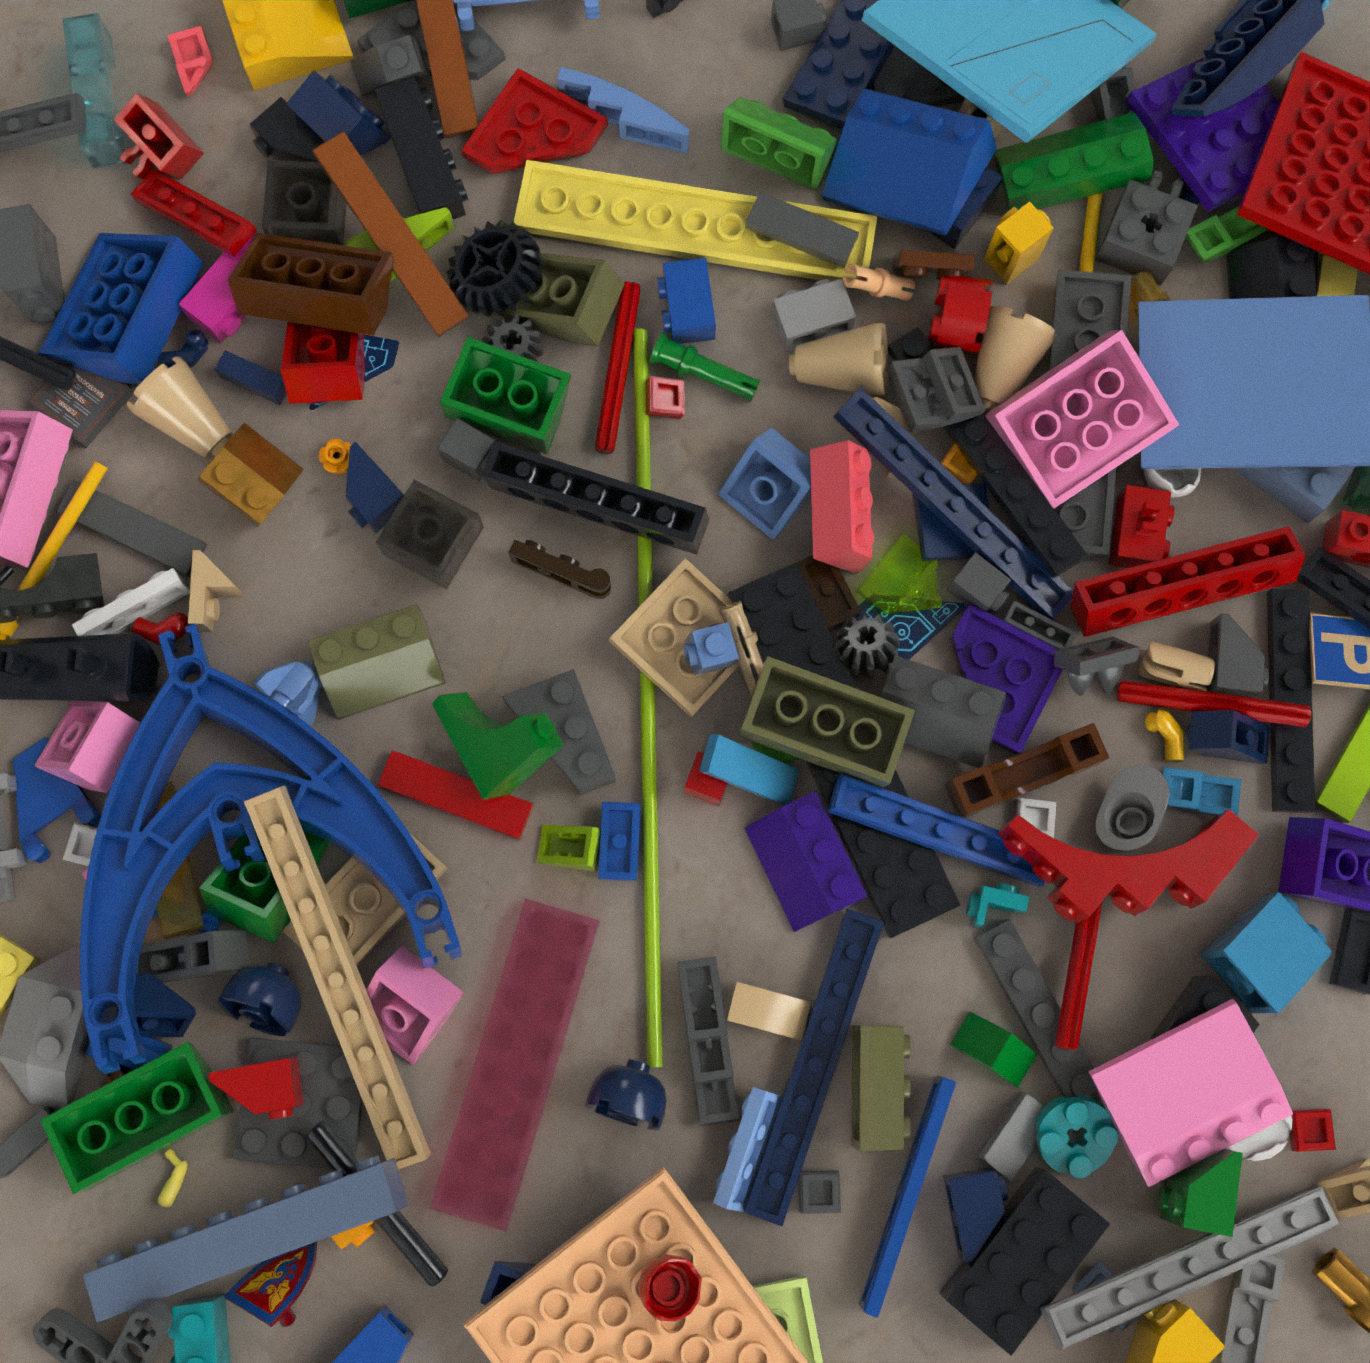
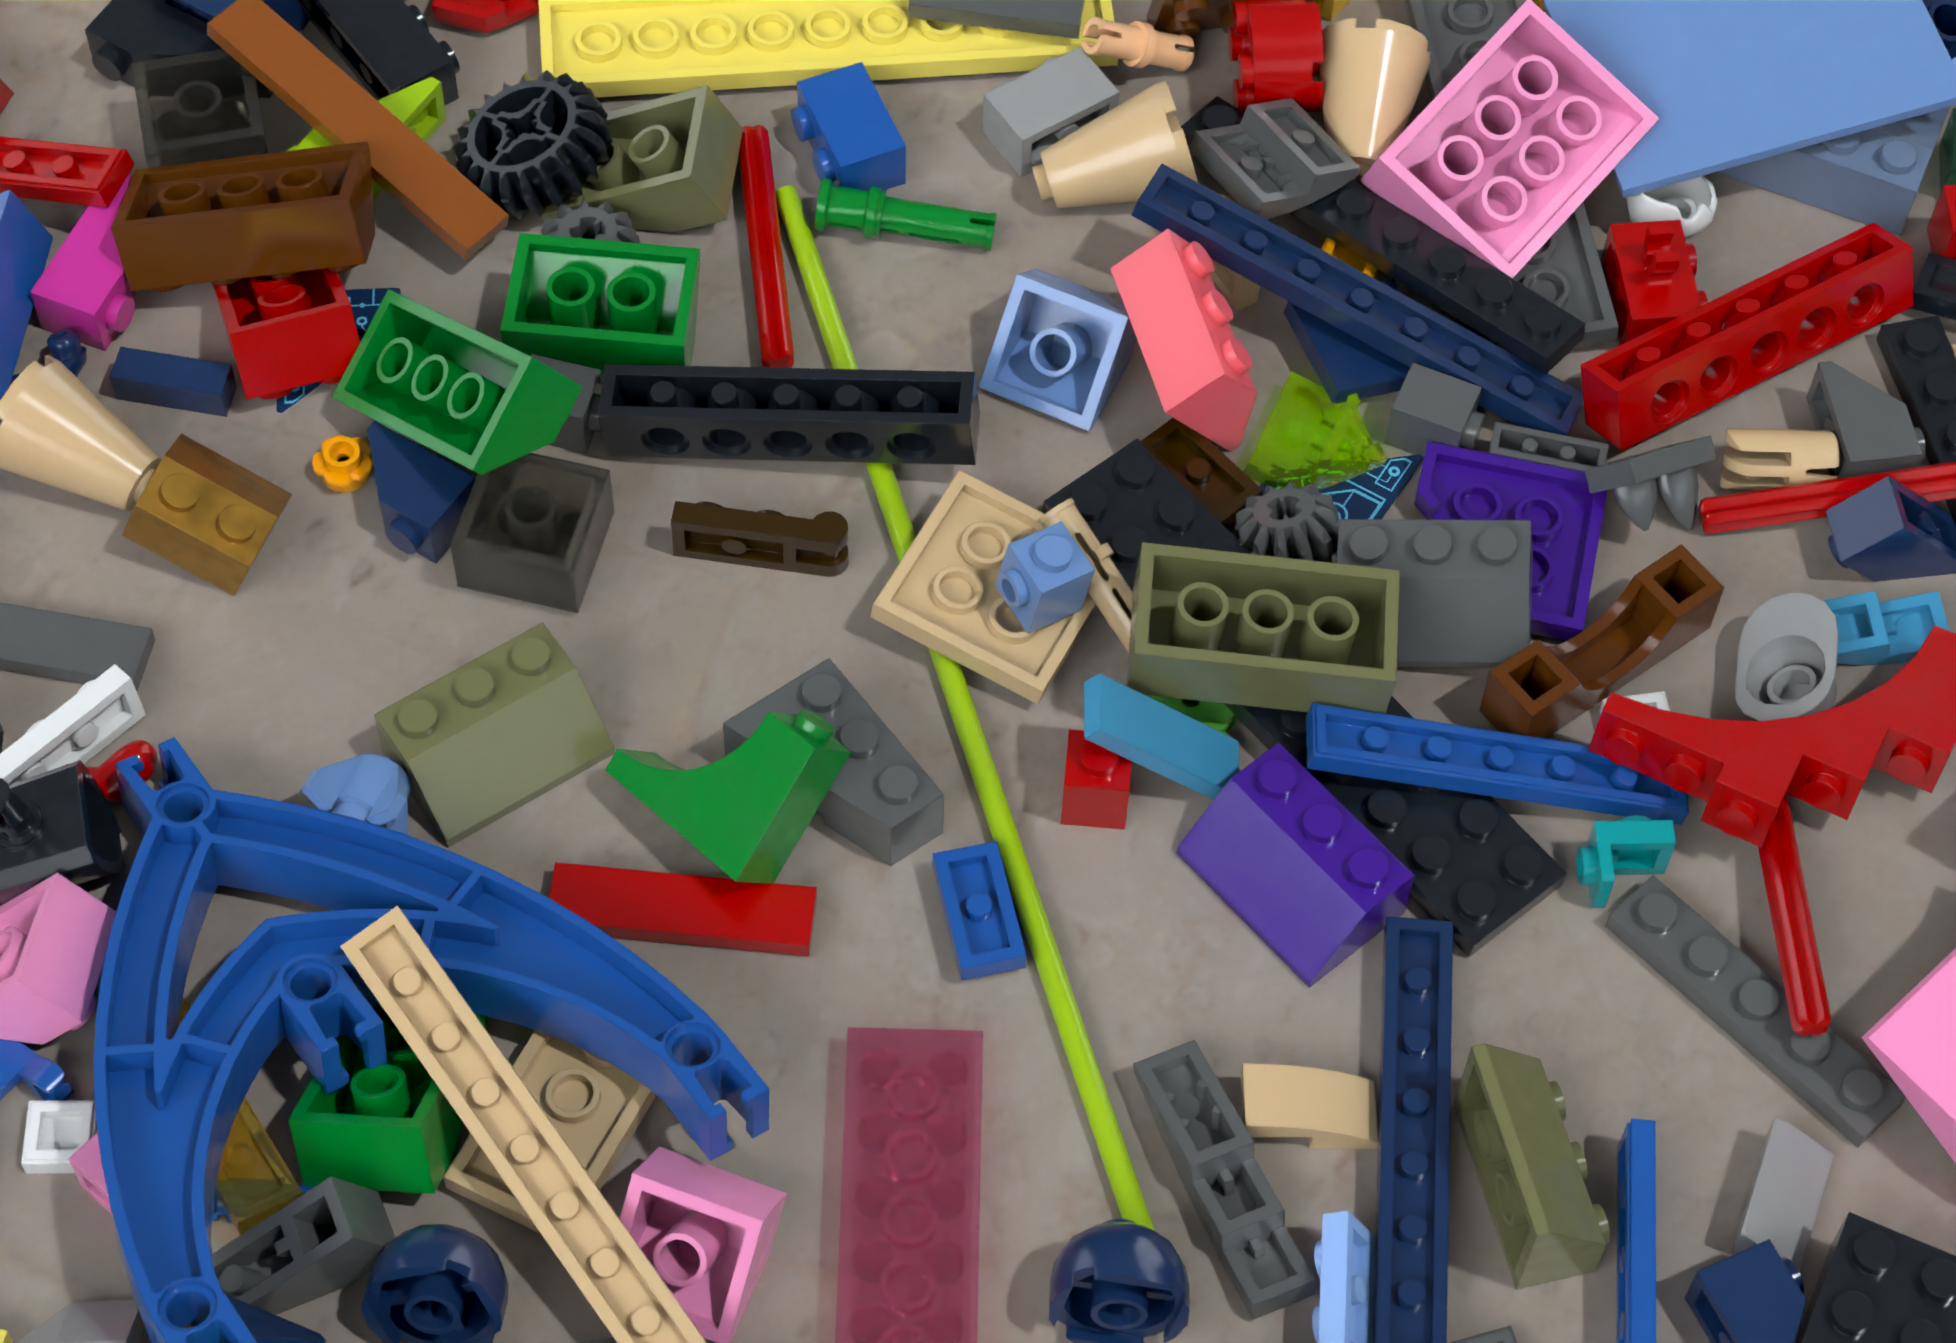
camera: 15 degrees left, 20 degrees down
(205, 584) = (183, 685): tan slope -> none
(403, 436) = (454, 387): none -> green slope
(569, 846) = (900, 934): lime slope -> none
(665, 397) = (853, 270): tile -> none
(994, 1048) = (1699, 1073): green slope -> none
(1083, 1155) = (1912, 1151): teal plate -> none
(1171, 731) = (1805, 553): yellow arm -> none

